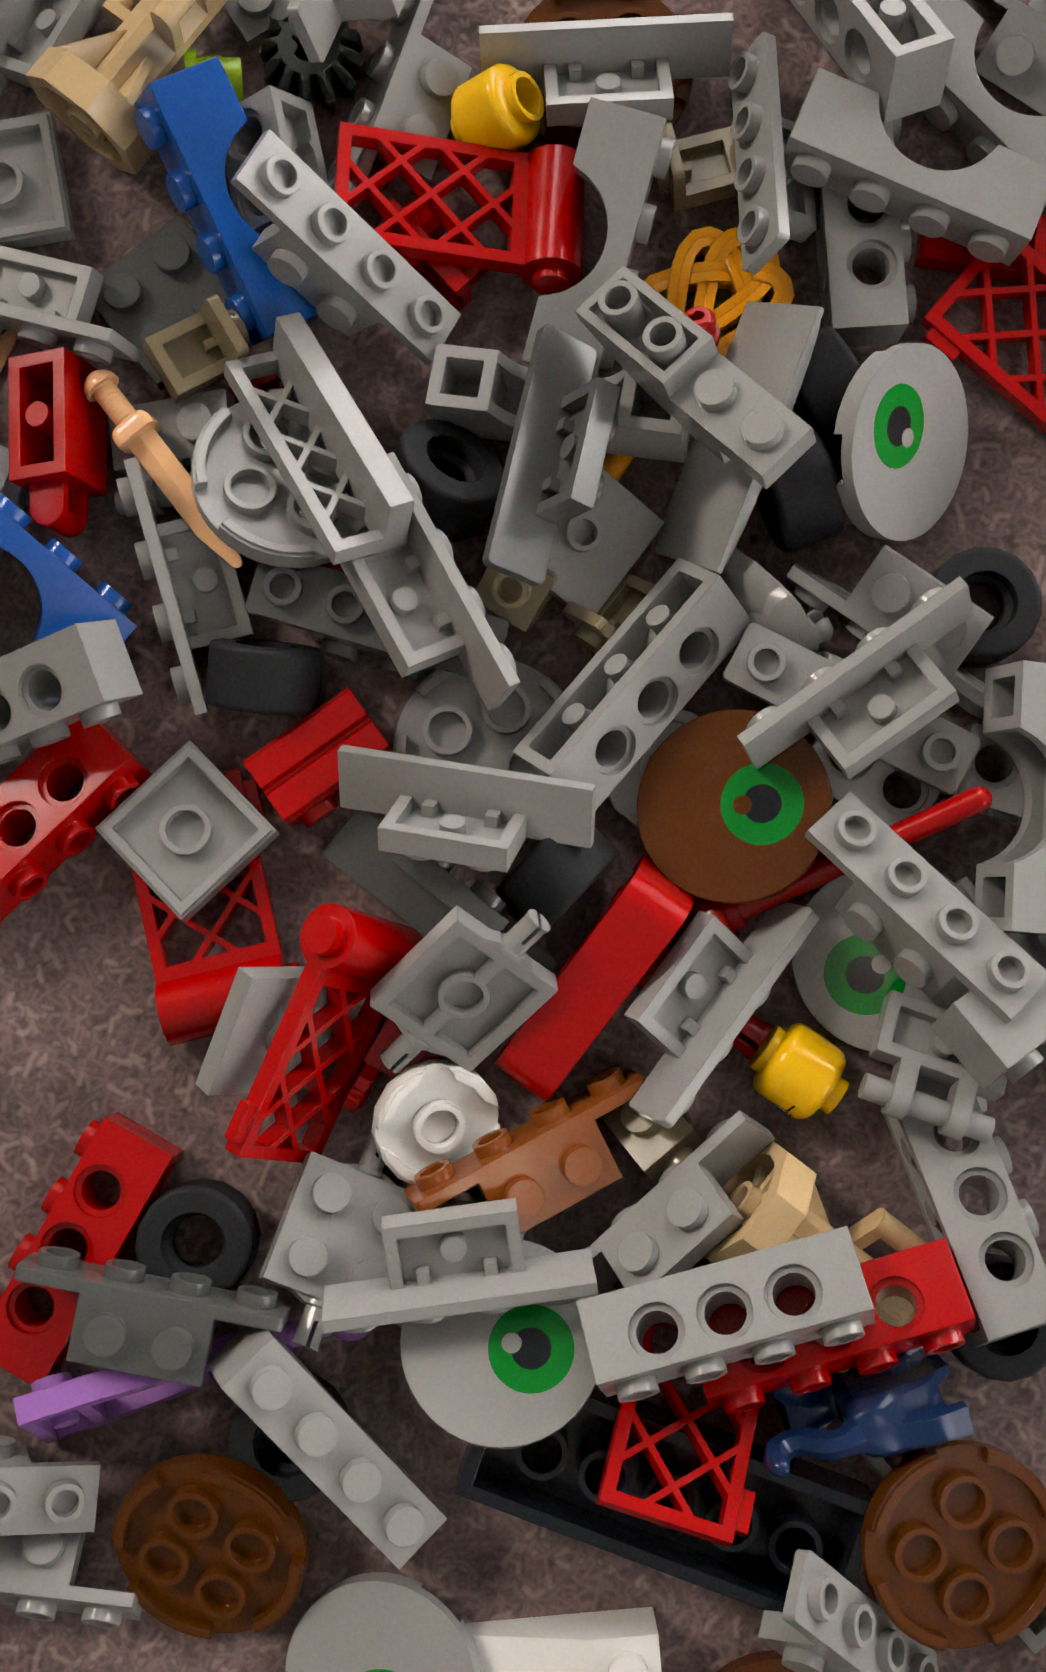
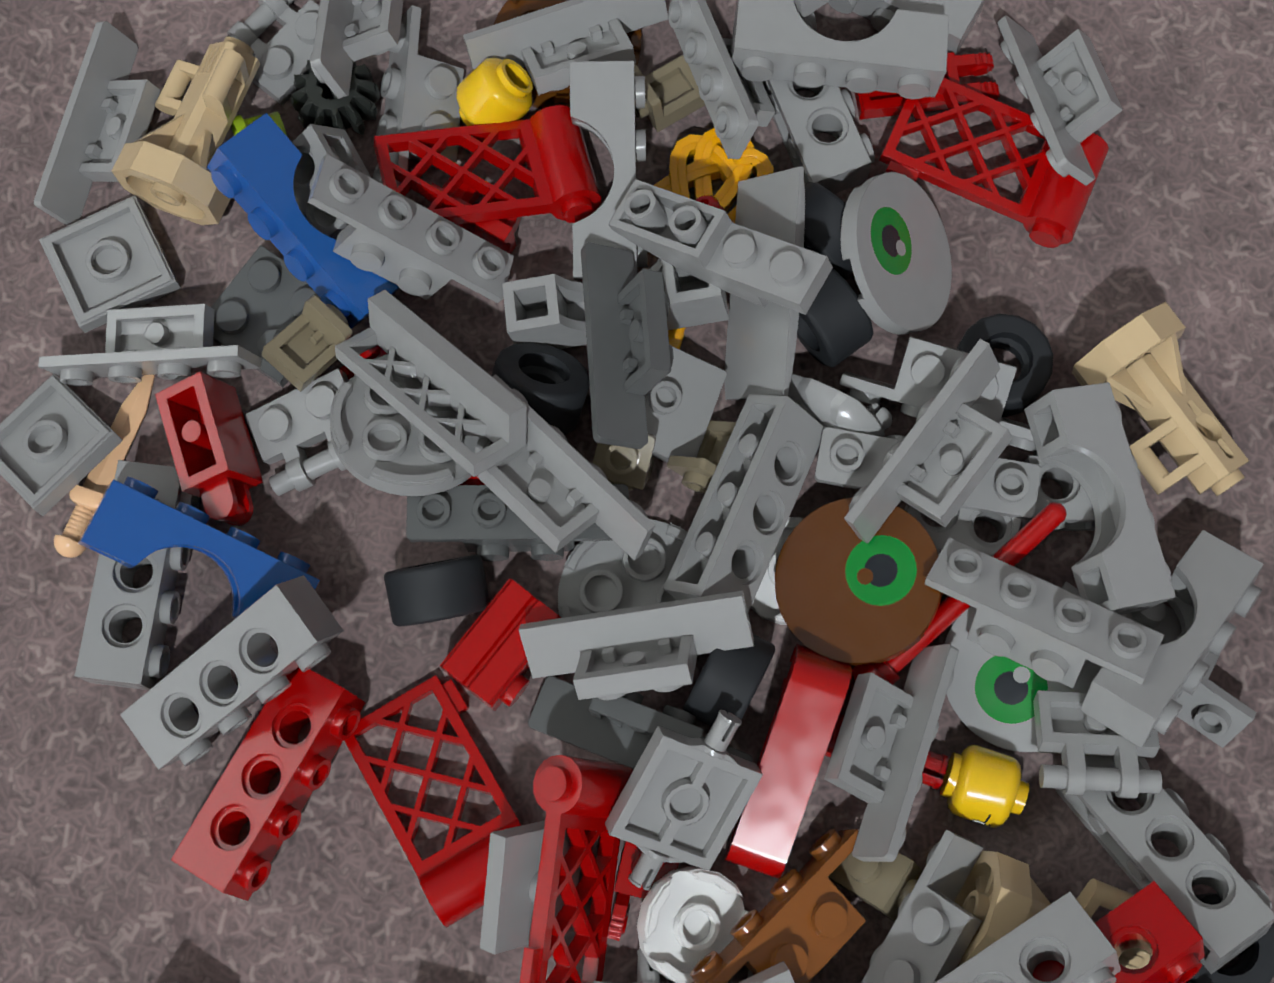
camera: 15 degrees left, 10 degrees down
(138, 434) = (277, 424): light nougat sword -> none
(187, 831) = (409, 738): light grey plate -> none
(195, 583) = (357, 530): light grey bracket -> none

